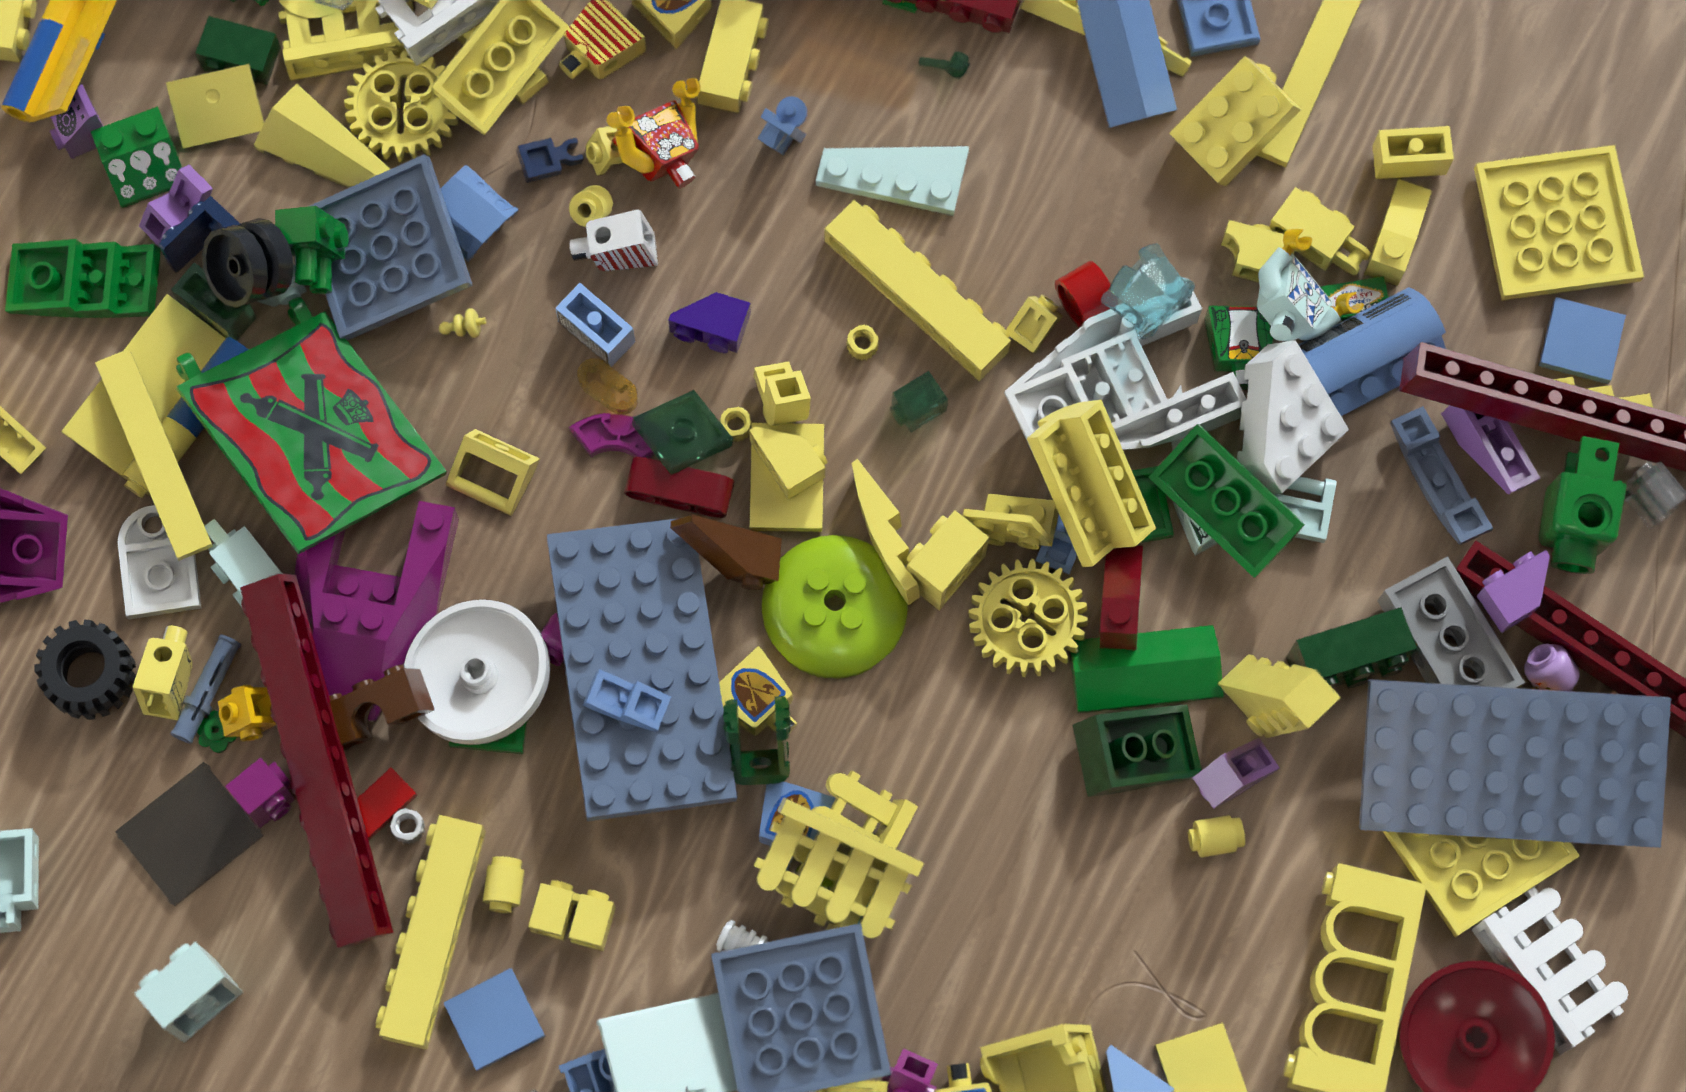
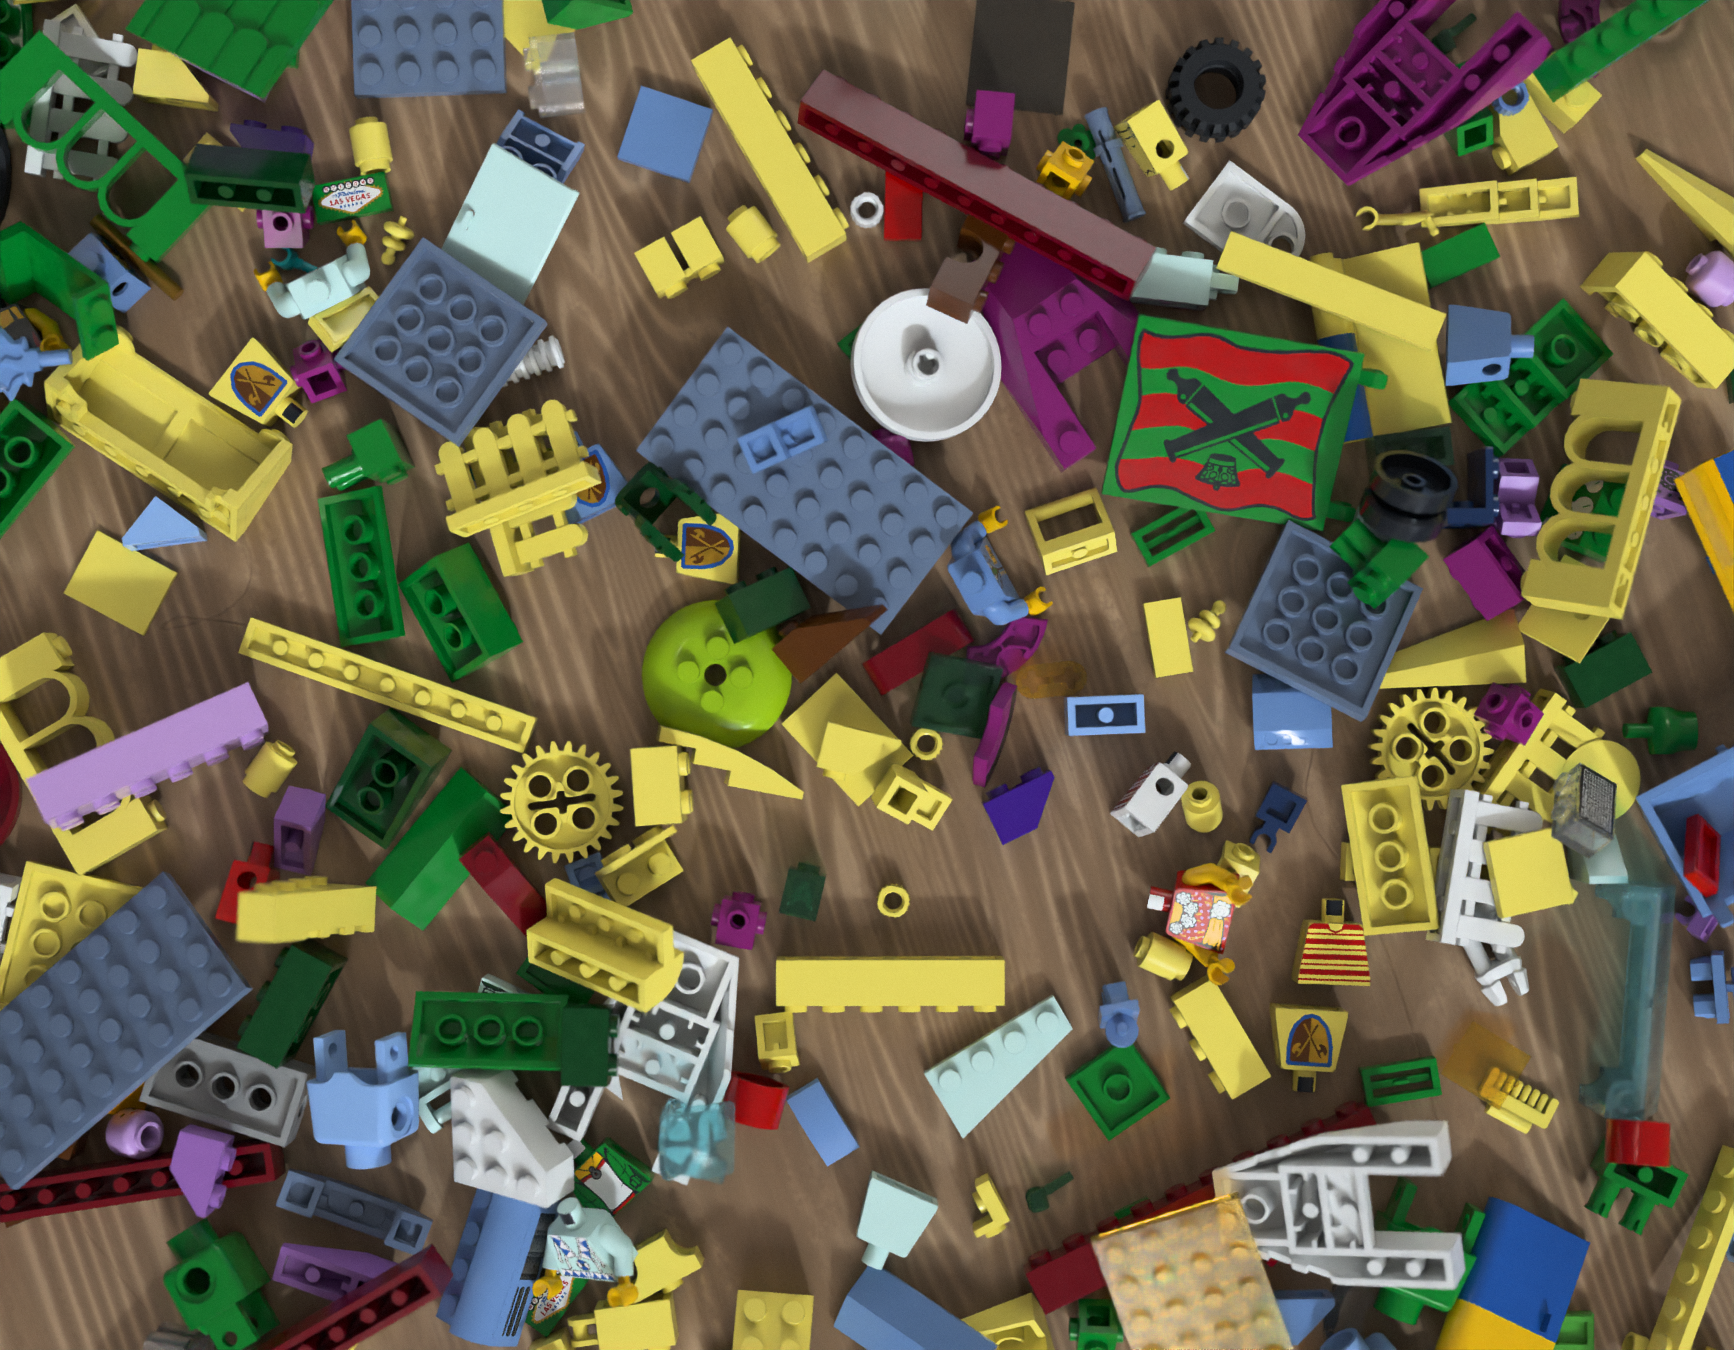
camera: 135 degrees right, 15 degrees up
(41, 404) = (1458, 255): none -> green tile
(56, 467) = (1400, 219): none -> light yellow piece
(61, 211) = (1601, 408): none -> light yellow fence
(93, 325) = (1481, 345): none -> medium blue torso
(246, 176) = (1487, 572): none -> magenta brick
(328, 75) = (1508, 713): none -> magenta brick
(435, 394) = (1144, 548): none -> green tile
(500, 340) = (1167, 637): none -> light yellow tile
(584, 490) = (983, 578): none -> medium blue torso
(682, 383) = (995, 734): none -> magenta tile
(716, 138) = (1162, 956): none -> light yellow brick
(754, 615) = (762, 604): none -> dark green brick
(834, 85) = (1117, 1089): none -> green tile
(928, 976) = (375, 455): none -> green brick
(974, 815) = (460, 612): none -> green slope
(982, 422) = (734, 934): none -> magenta brick
(995, 79) = (989, 1200): none -> light yellow bracket
(1013, 916) = (361, 566): none -> green slope
(1054, 242) = (822, 1122): none -> medium blue slope
(1067, 138) = (892, 1218): none -> light aqua torso
(1076, 816) = (387, 685): none -> light yellow plate
(1163, 423) = (588, 1045): none -> dark green brick
(1293, 909) = (148, 757): none -> lavender brick
(1321, 748) = (240, 877): none -> red torso
(1365, 535) = (363, 1105): none -> light blue piece

